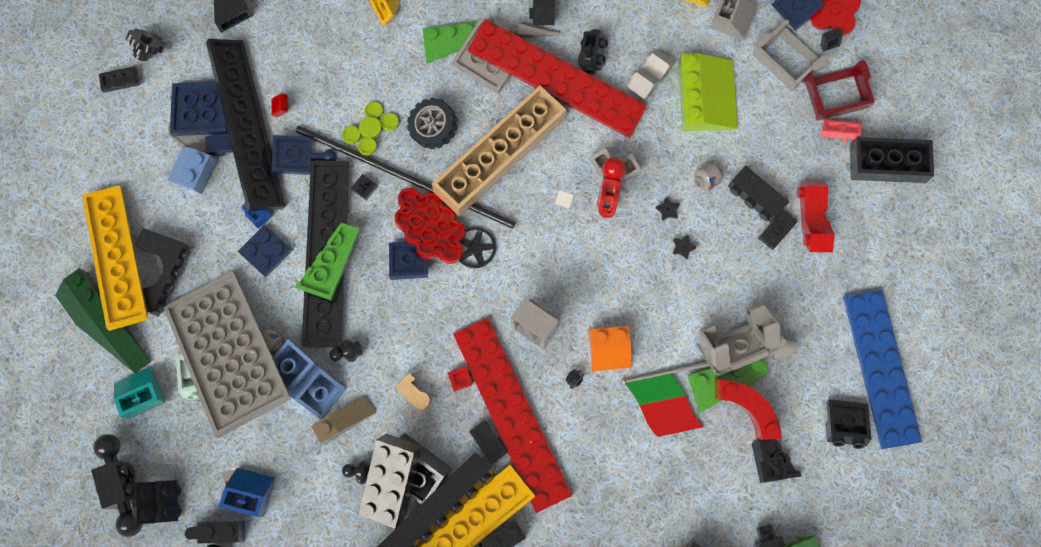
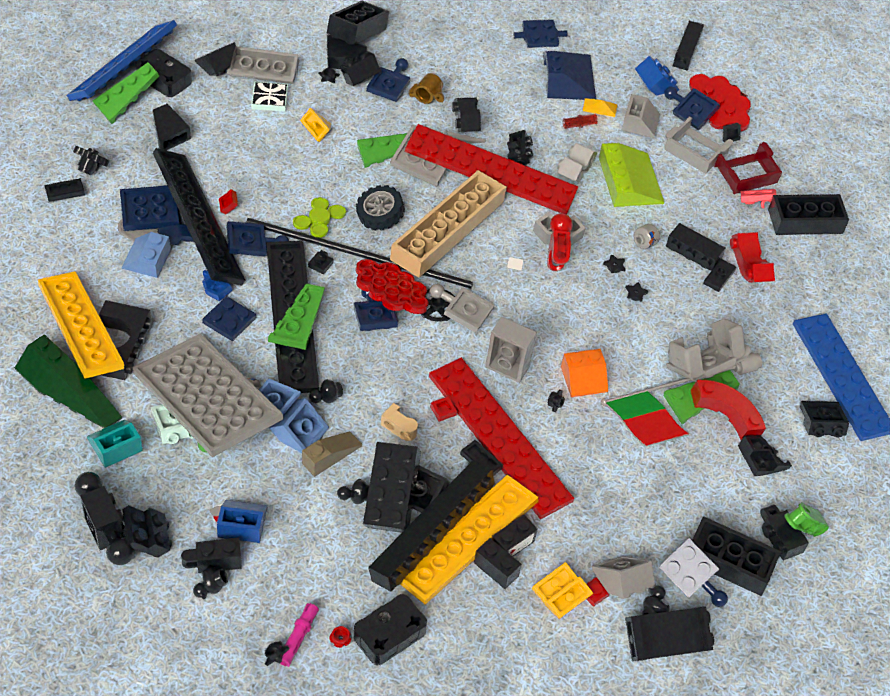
camera: 15 degrees left, 25 degrees down
(503, 257) = (465, 307): none -> light grey plate
(666, 14) = (580, 121): none -> clear red pin

